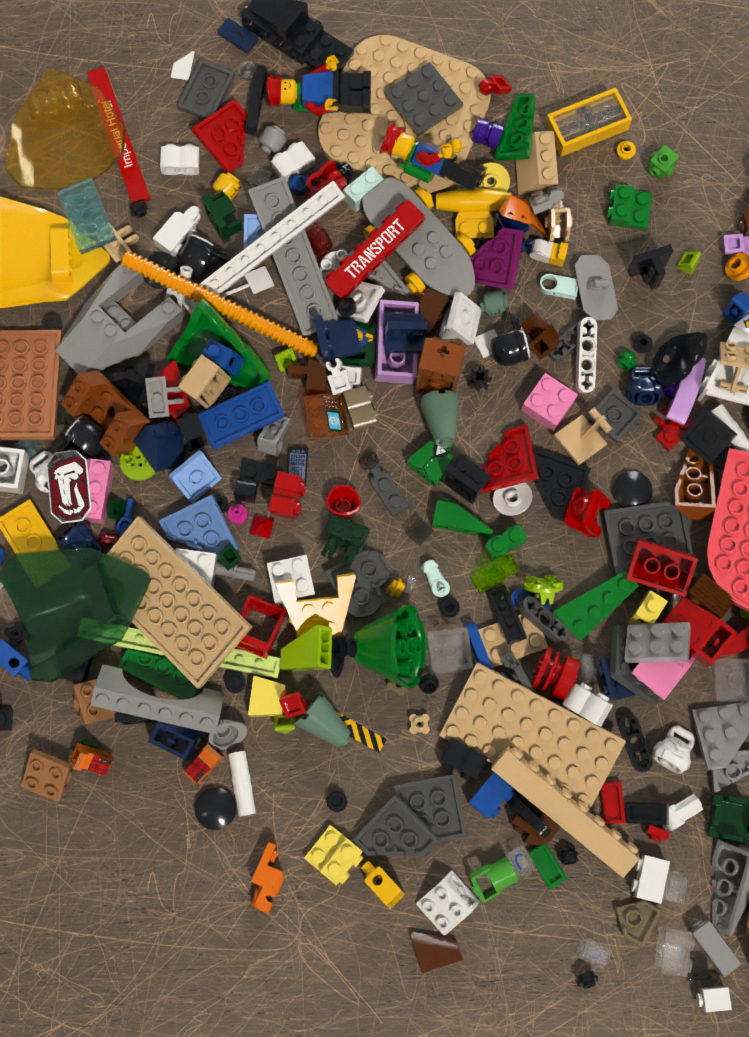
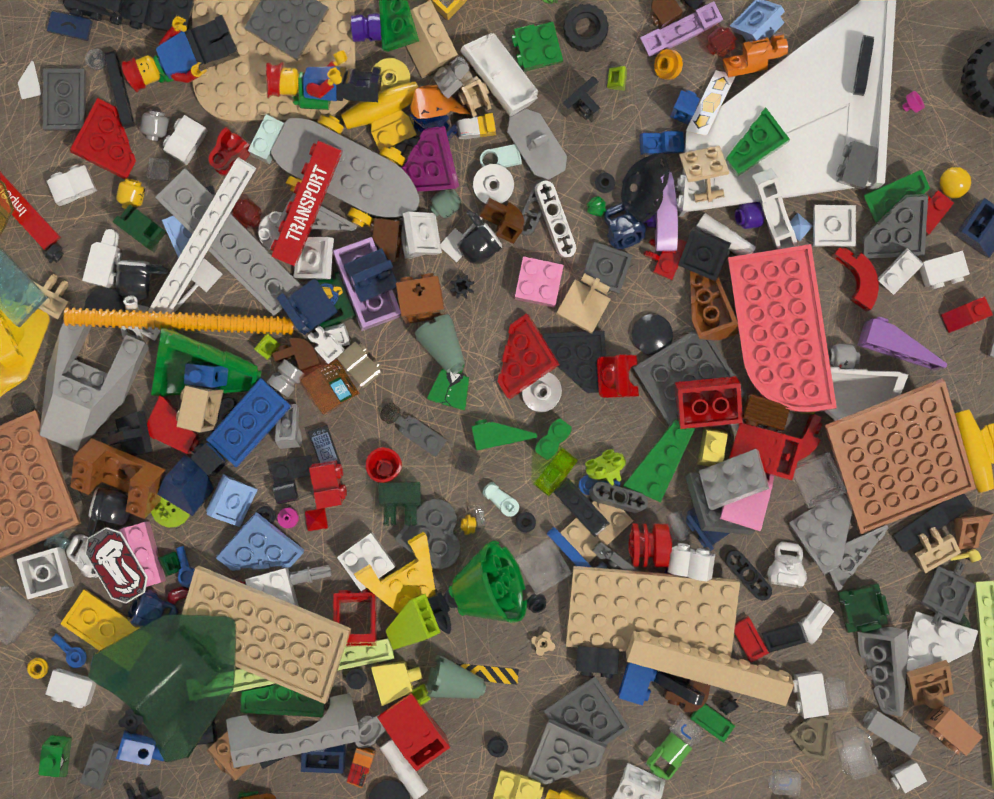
camera: 25 degrees left, 10 degrees up
(157, 397) = (161, 442): light grey hinge -> none
(228, 556) = (298, 564): dark green slope -> none
(267, 750) = (414, 732): none -> red slope
(290, 392) = (286, 378): none -> light grey wheel
(293, 704) = (420, 680): red panel -> none
(298, 183) = (200, 159): blue plate -> none
(345, 169) = (239, 127): black plate -> none
(347, 307) = (304, 270): black plate -> none
(465, 478) = (490, 392): black bracket -> none
(549, 297) = (495, 173): none -> white dish
(588, 216) = (500, 73): none -> white container
(656, 834) = (800, 651): red plate -> none
(678, 194) = (590, 12): none -> black tyre
(715, 331) = (665, 142): none -> blue slope

